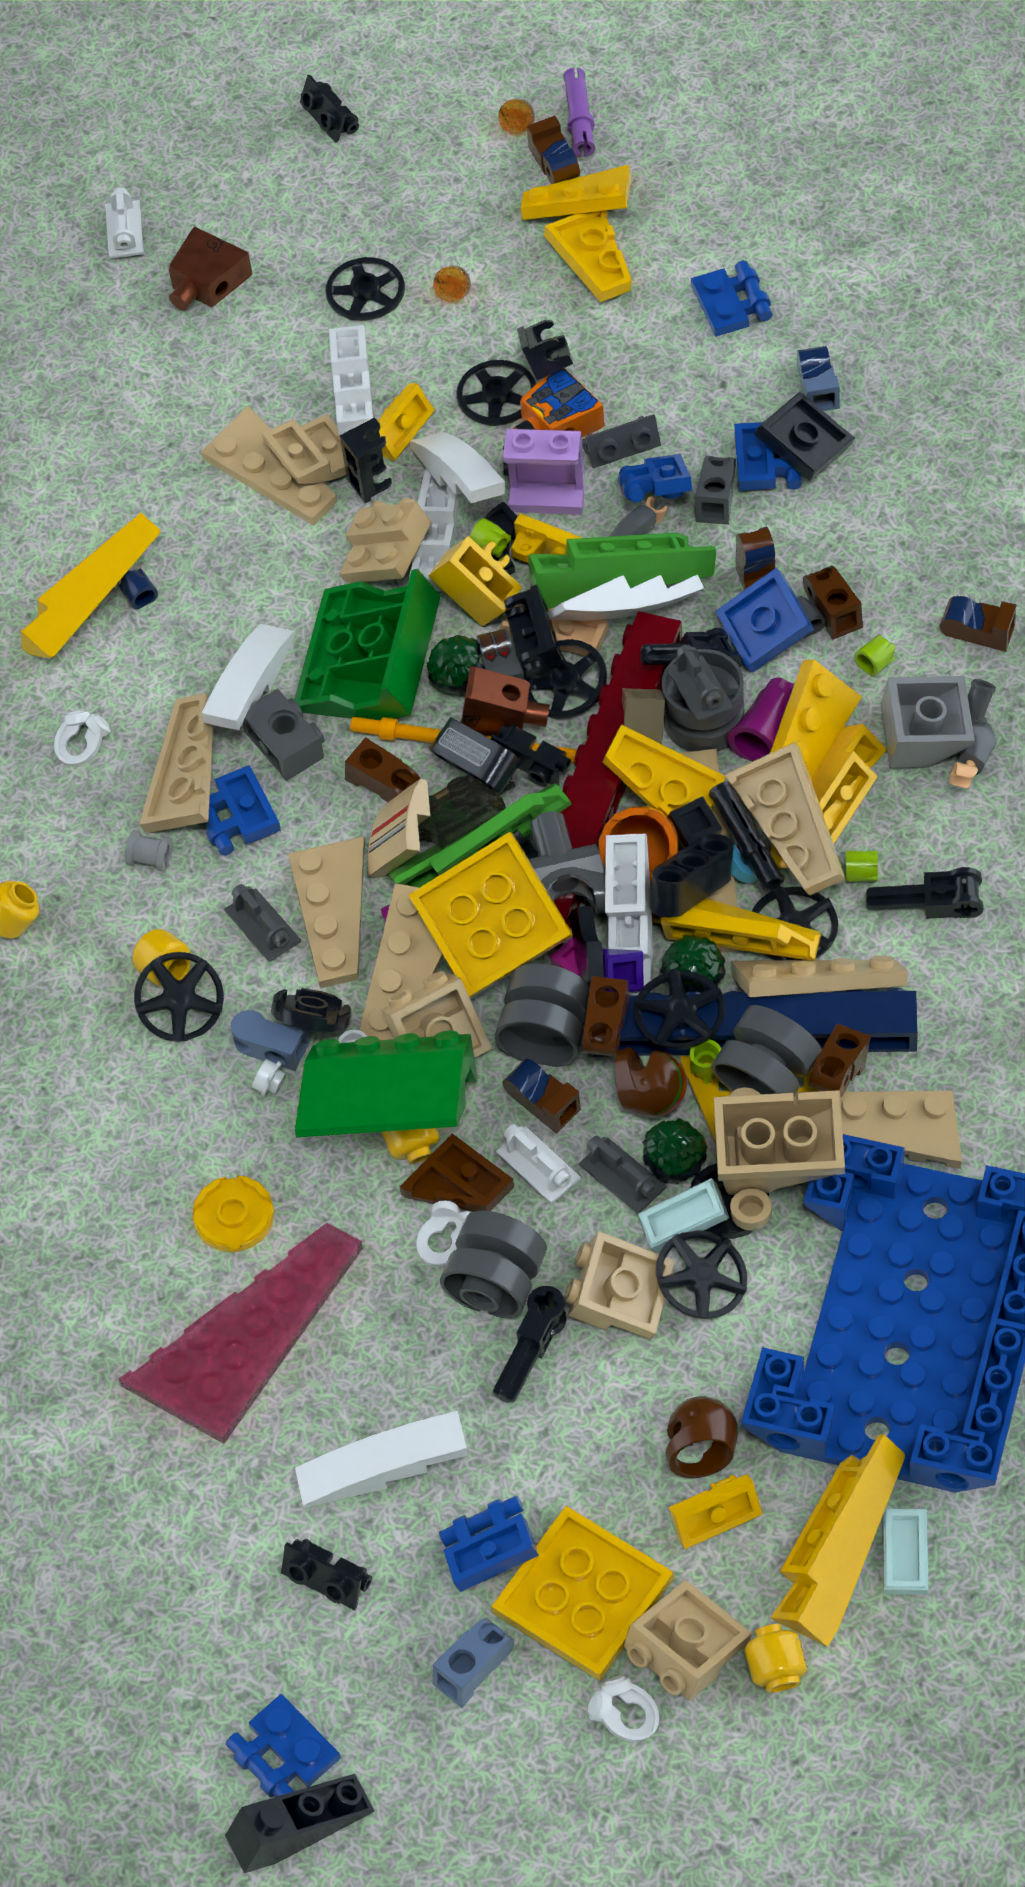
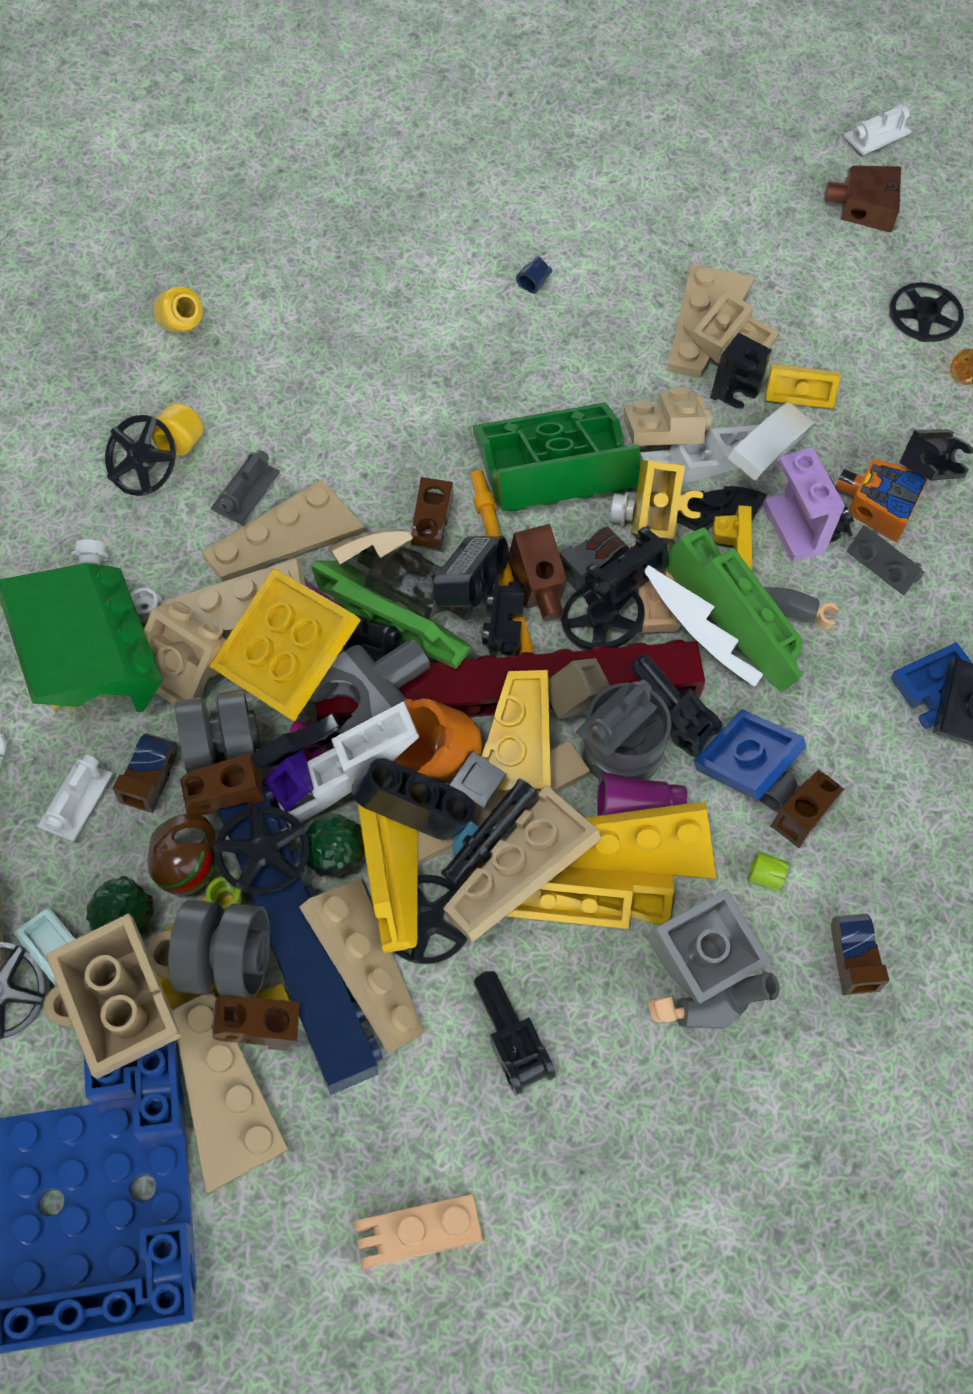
camera: 55 degrees right, 5 degrees up
(80, 591) = (511, 235): yellow wedge -> none
(96, 730) = (387, 301): white piece -> none
(148, 850) = (281, 385): light grey bush -> none
(183, 770) = (362, 372): tan wing -> none
(247, 676) = (488, 377): white slope -> none
(248, 809) = (355, 432): blue plate -> none
(269, 1039) = (124, 538): sand blue leg -> none
(288, 752) = (437, 427): dark grey brick -> none
(311, 1010) = (158, 554): black tile -> none
(350, 377) = (823, 337): white slope -> none
(451, 663) = (567, 518): dark green piece -> none
(458, 619) = (622, 508): none -> white plate
(459, 1176) = (36, 740): reddish brown wing -> none
(486, 532) = (715, 494): lime hose -> none
(495, 392) = (878, 444): black wheel -> none
(621, 1173) = (89, 870): dark grey hinge -> none
(662, 474) = (855, 602): blue plate -> none
(715, 490) = (876, 655): dark grey leg -> none
(754, 556) = (813, 717): reddish brown leg -> none
(861, 866) = (516, 954): lime hose -> none

